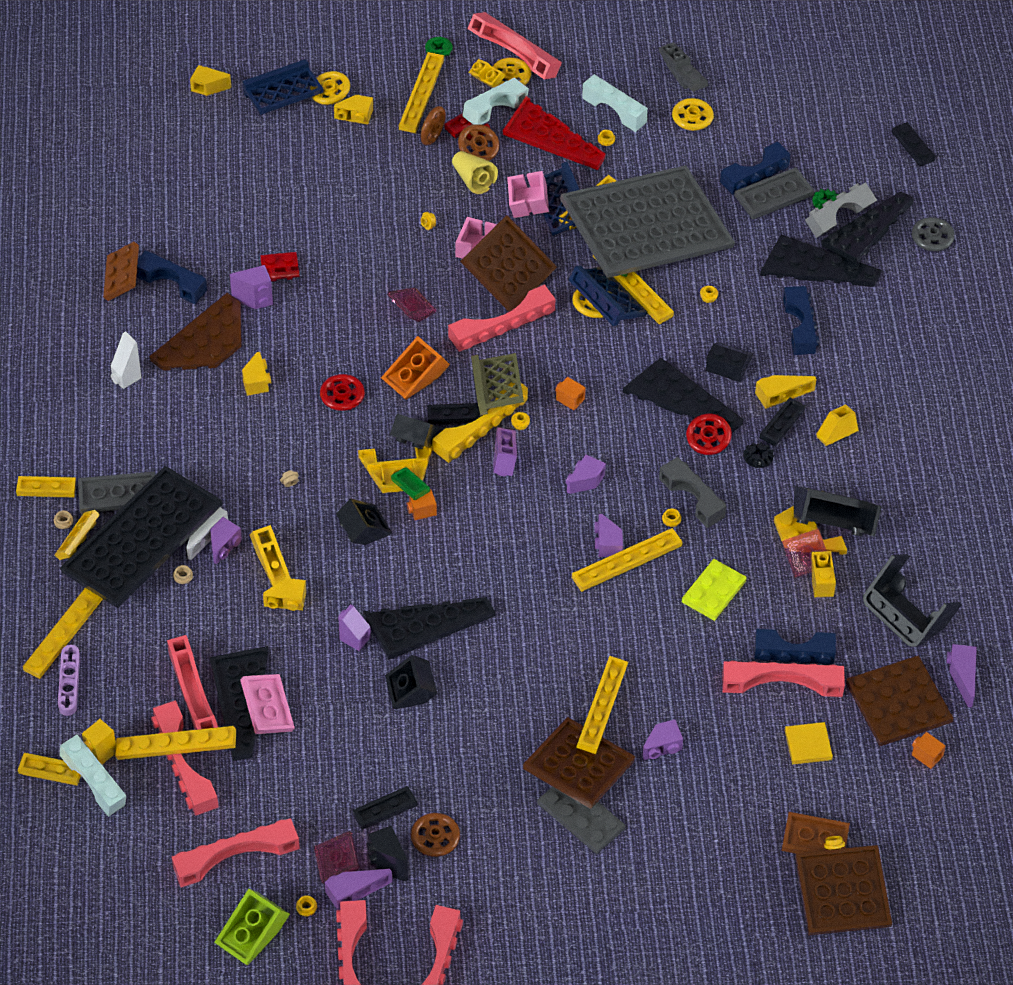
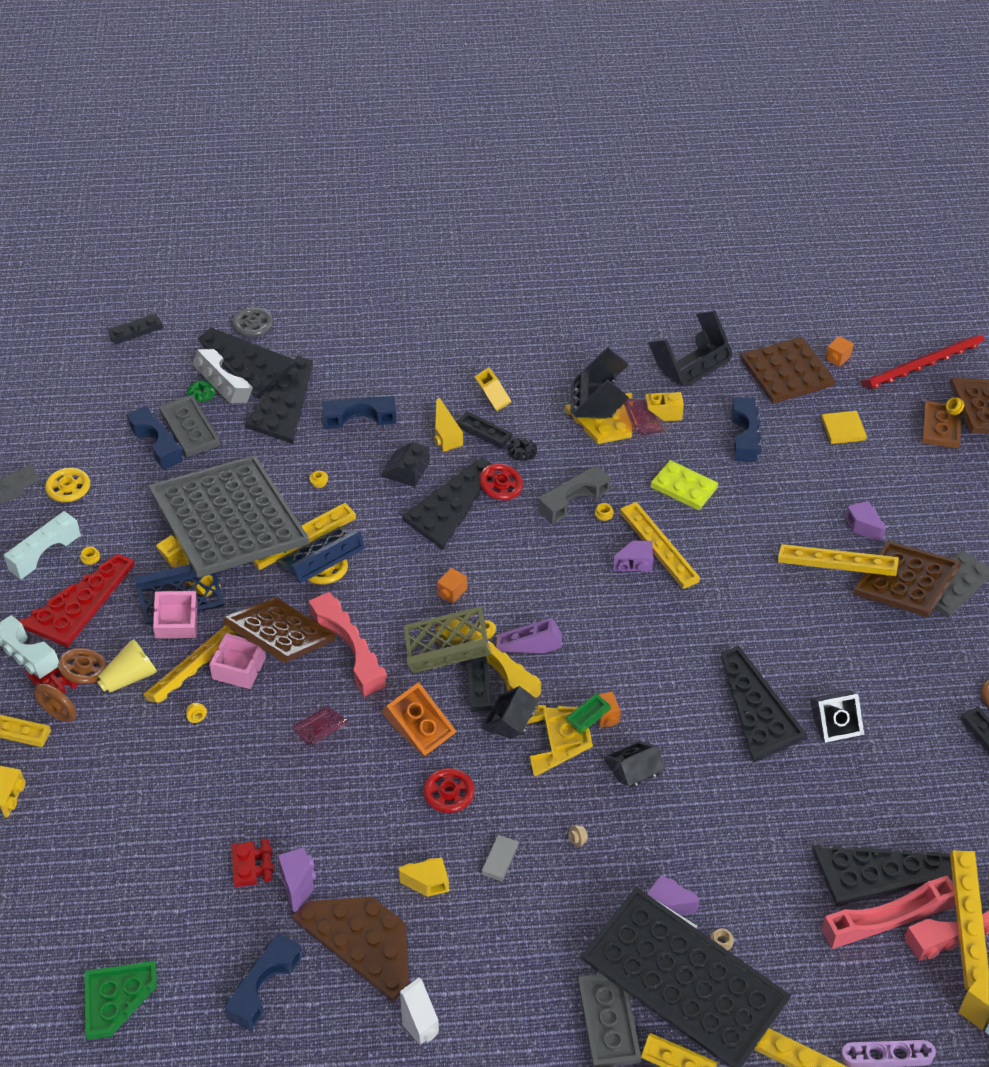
camera: 90 degrees left, 5 degrees down
(121, 271) = (254, 1037): dark orange plate -> none
(167, 193) = (114, 995): none -> green plate
(267, 704) = (892, 838): bright pink plate -> none
(269, 554) = (684, 850): yellow slope -> none
(273, 427) = (500, 858): none -> light grey tile
(286, 594) = (739, 830): yellow slope -> none
(353, 628) = (781, 765): medium lavender slope -> none
(467, 205) = (188, 667): none -> yellow plate
(586, 476) = (557, 573): medium lavender slope -> none
(824, 679) = (784, 463): coral arch -> none
(924, 840) = (918, 363): none -> red plate
(963, 670) = (756, 326): medium lavender slope -> none

